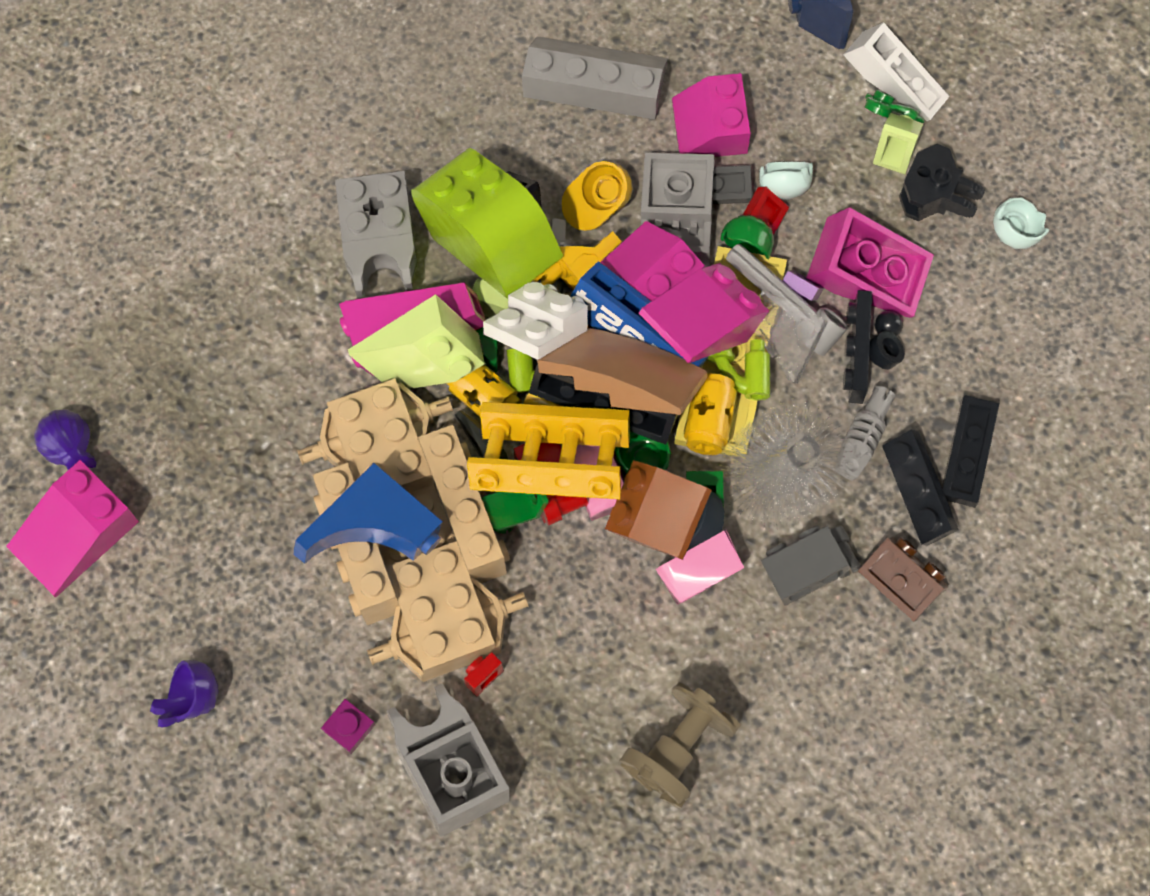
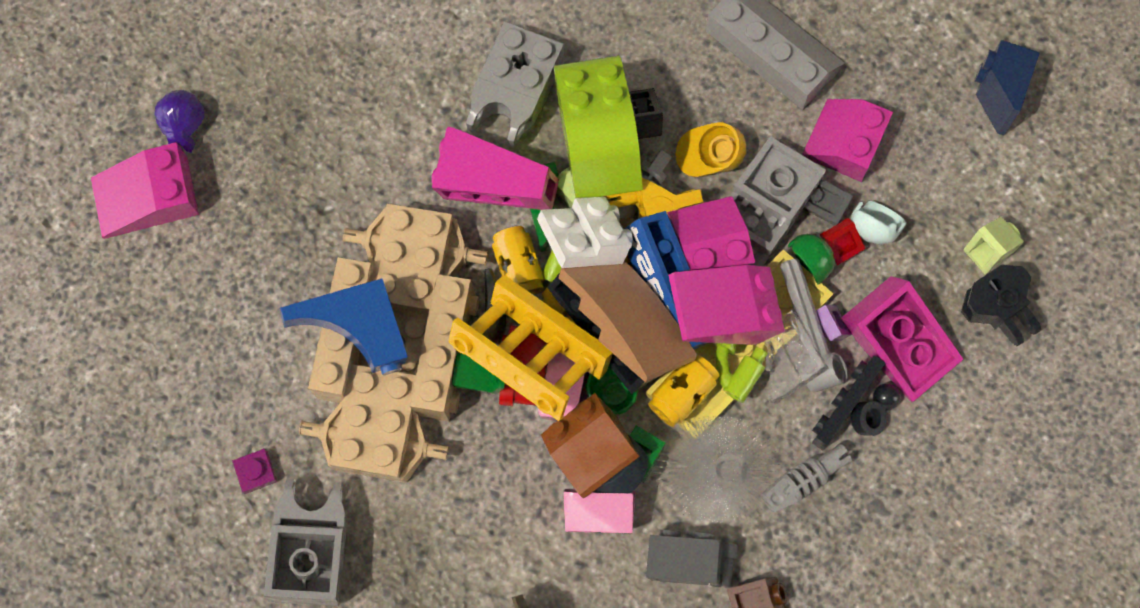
camera: 35 degrees right, 5 degrees up
(190, 694) = (152, 376): dark purple piece -> none
(422, 347) = (486, 202): yellowish green slope -> none
(482, 673) = (378, 492): red plate -> none
(882, 105) = (1002, 204): green plate -> none
(894, 70) = (1032, 182): white slope -> none
(920, 487) = (822, 551): black plate -> none
(969, 450) = (884, 544): black plate -> none
(1019, 223) = (1054, 374): light aqua hair -> none

